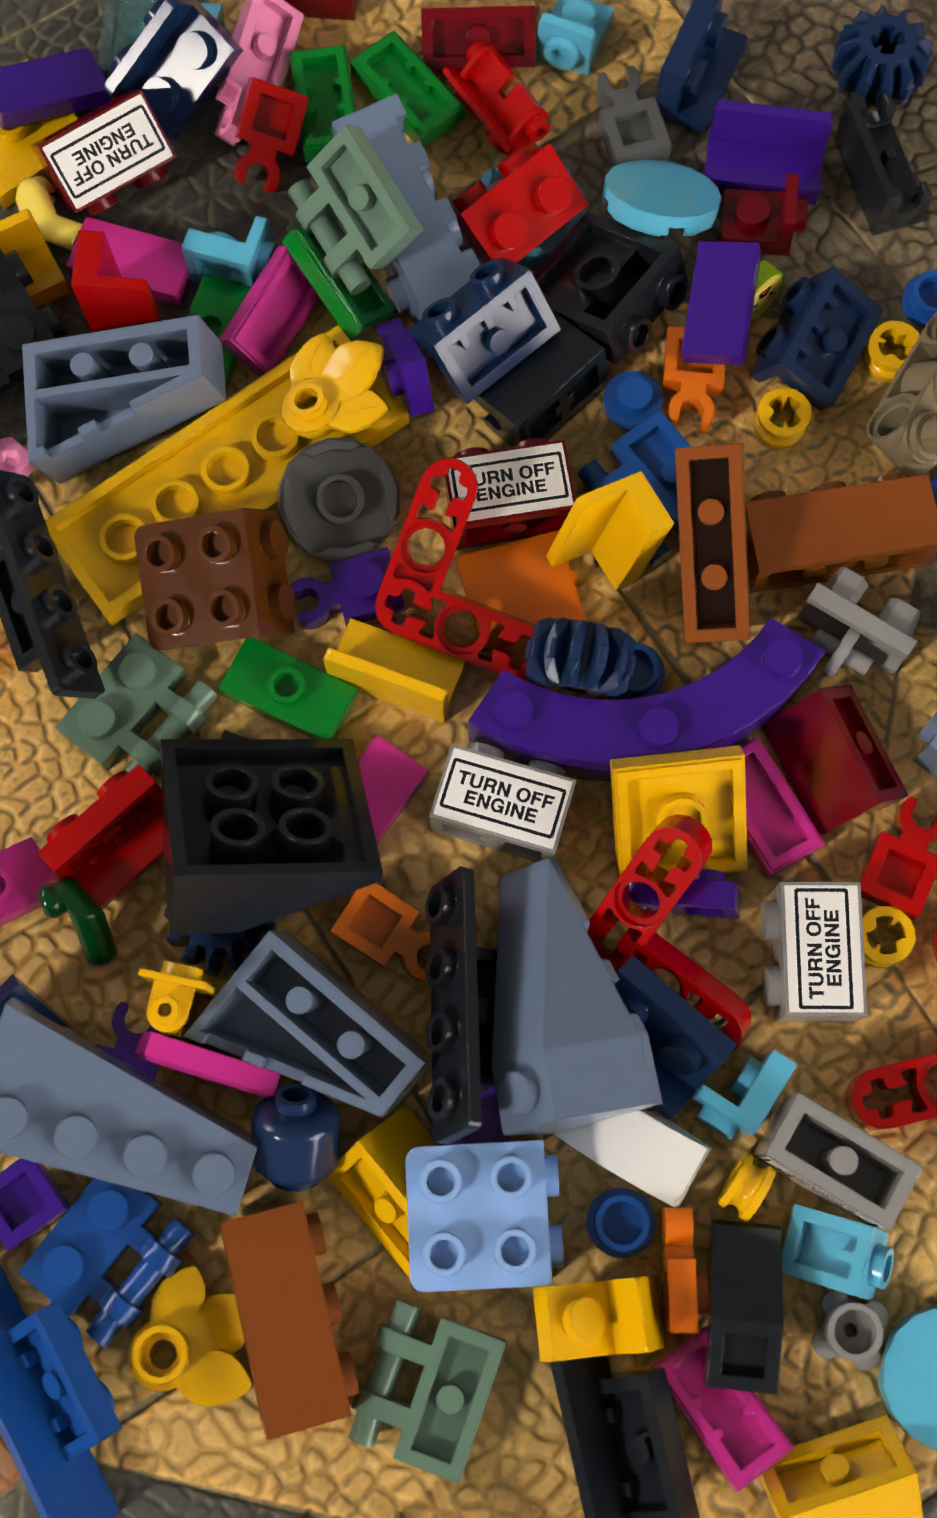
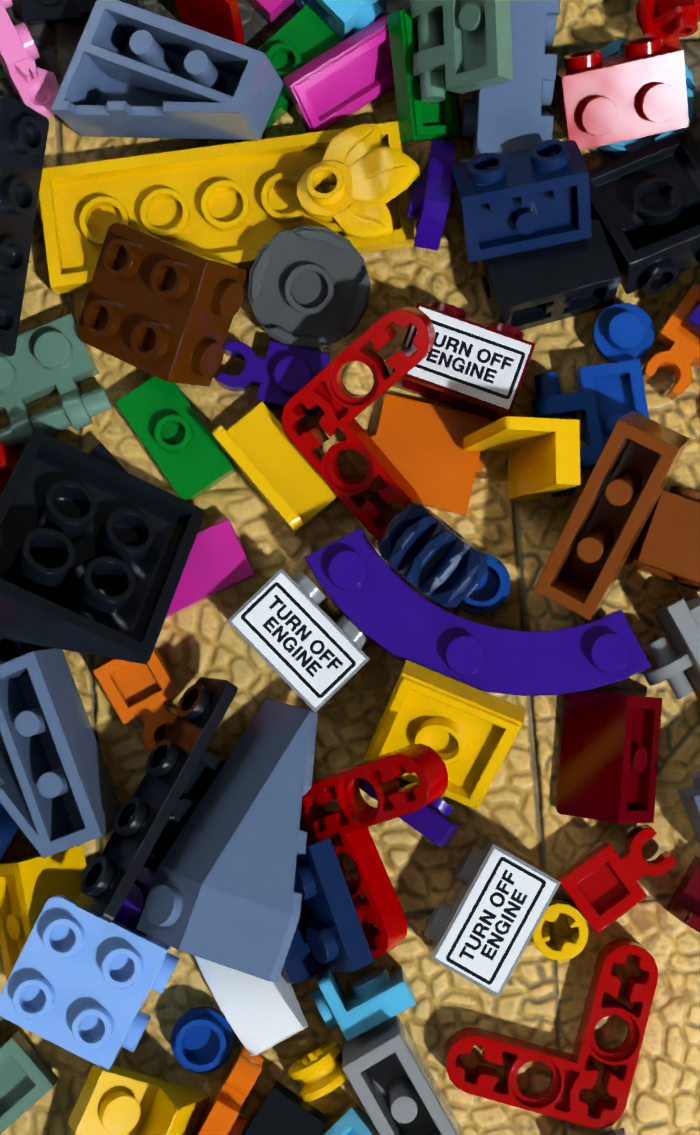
camera: 25 degrees right, 10 degrees up
(776, 822) = (526, 780): dark pink tile -> none

